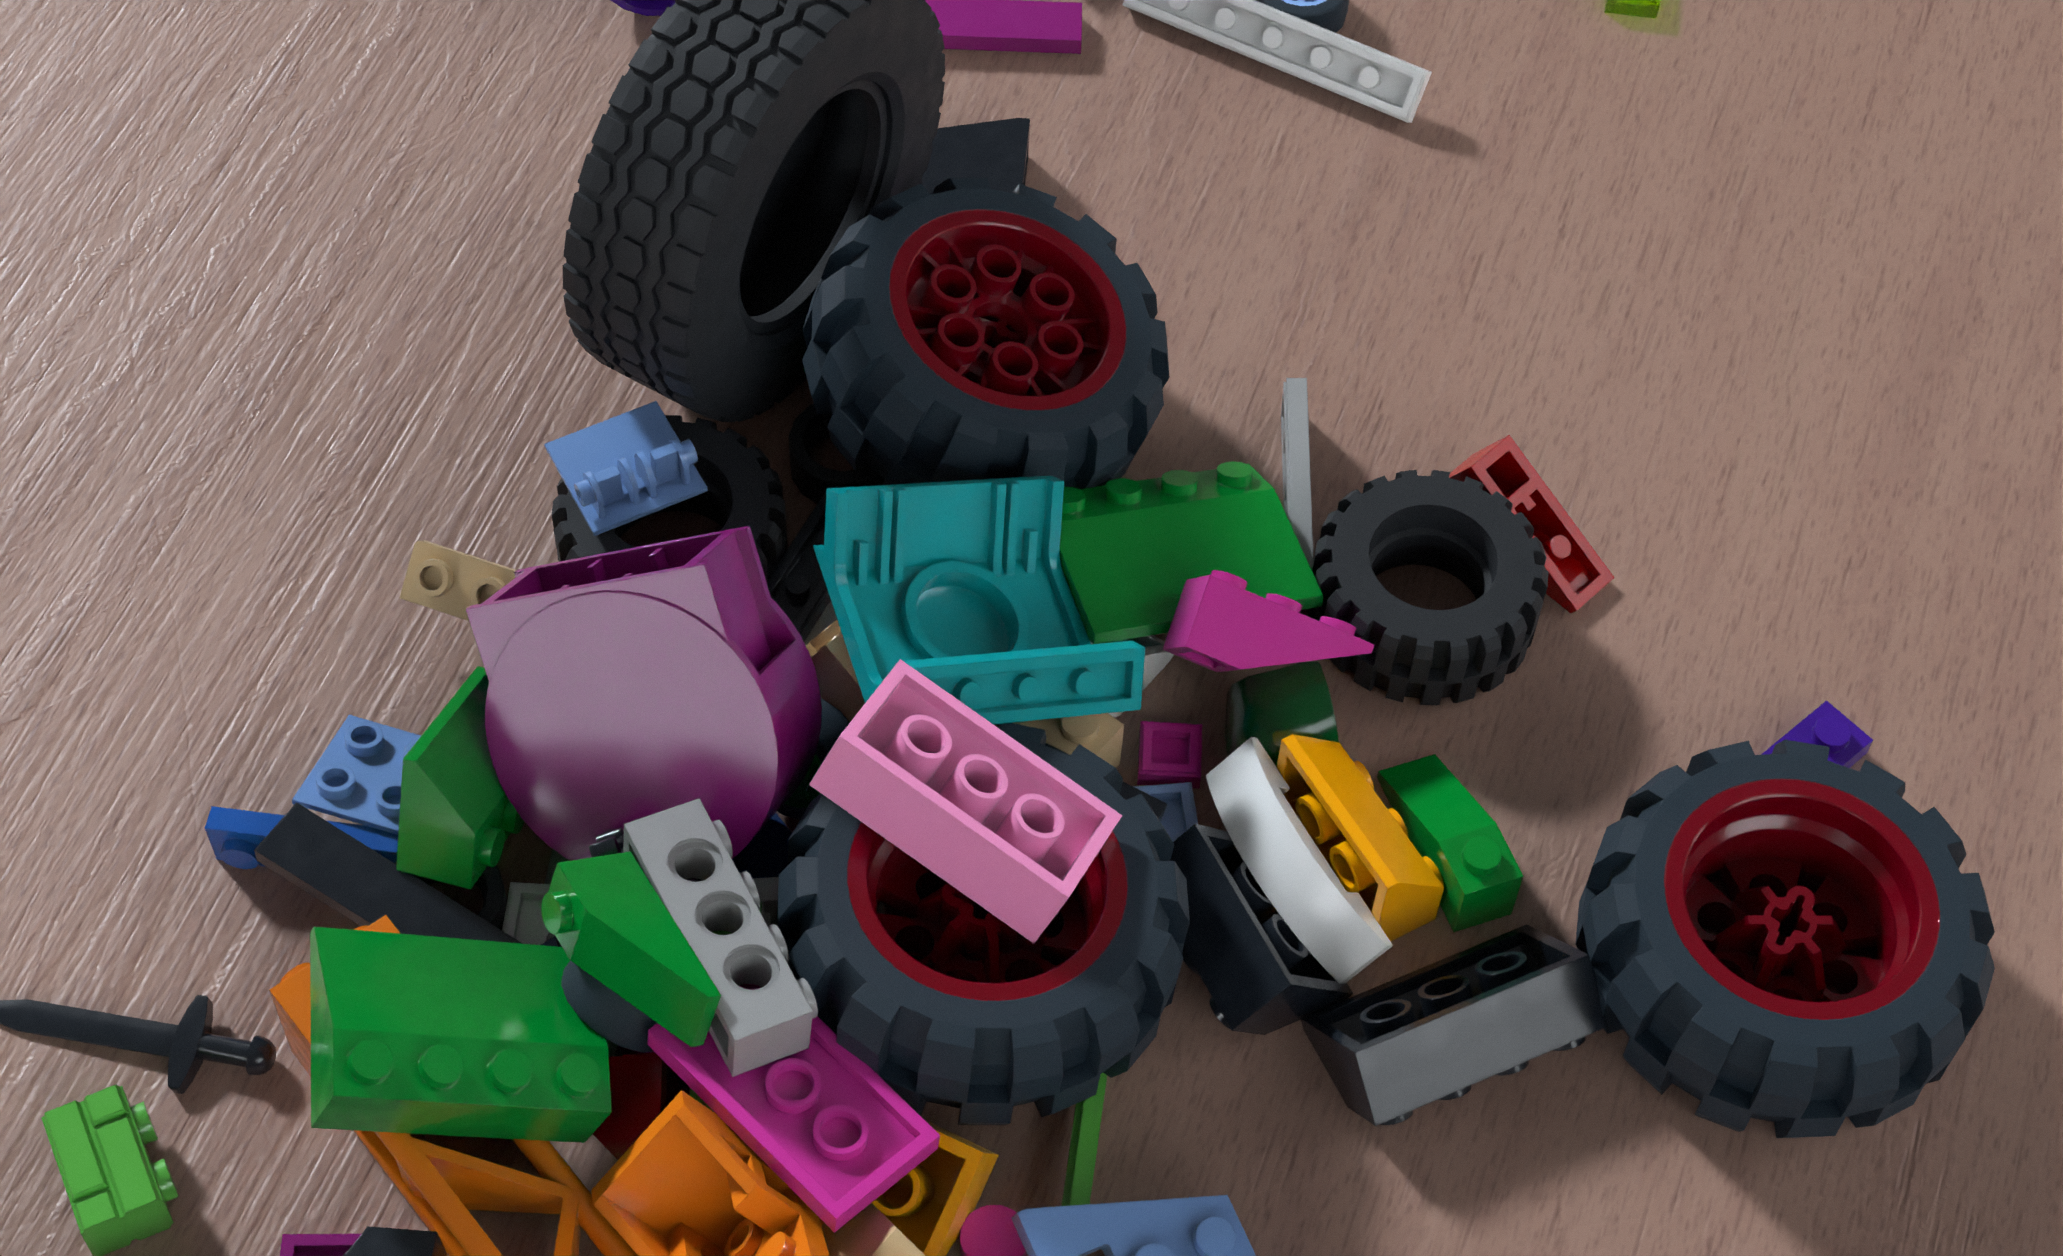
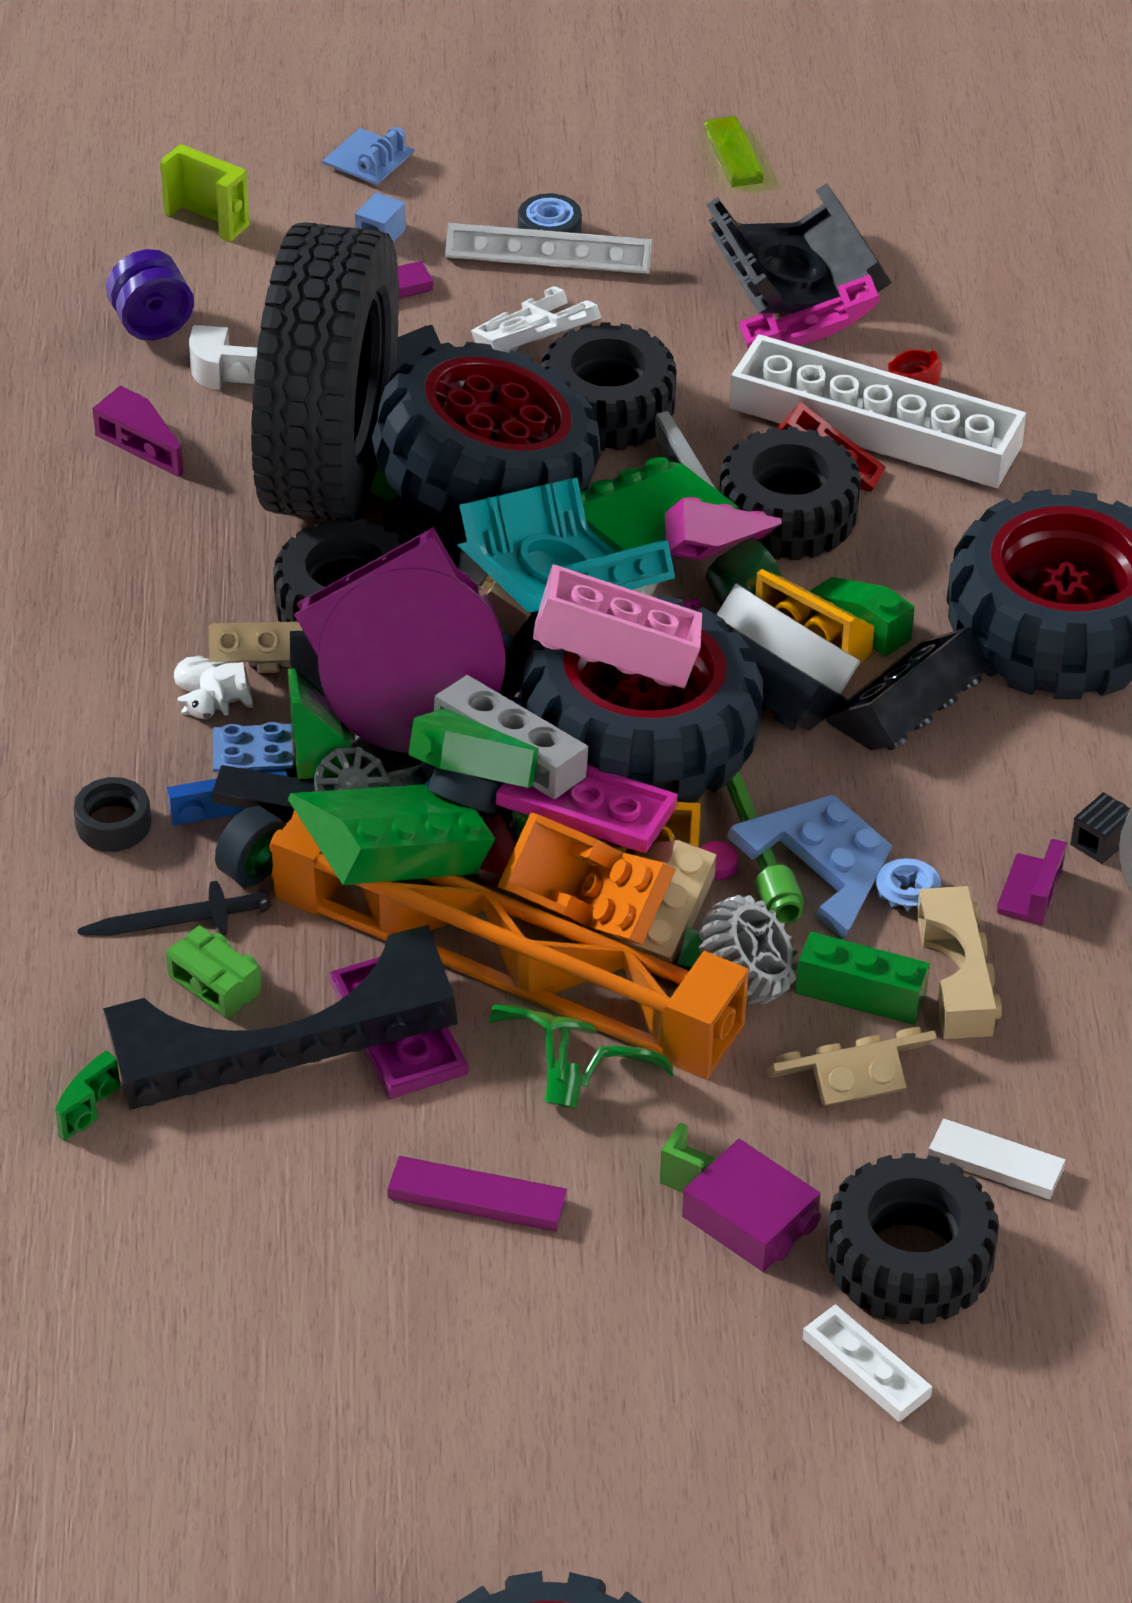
camera: 20 degrees left, 10 degrees down
(114, 777) = (116, 835): none -> black tyre
(261, 951) = (245, 846): none -> black wheel
(402, 640) = (211, 686): none -> white animal
(462, 909) = (350, 776): none -> dark grey wheel
(527, 147) = (136, 427): none -> magenta slope
(626, 467) = (316, 549): medium blue hinge -> none
(1174, 161) = (534, 321): none -> white wing
(1255, 251) = (622, 358): none -> black tyre
(1612, 285) = (819, 320): none -> dark pink slope
(1639, 175) = (796, 262): none -> black panel
(1644, 482) = (881, 410): none -> white brick
(1734, 422) = (917, 365): none -> red hair

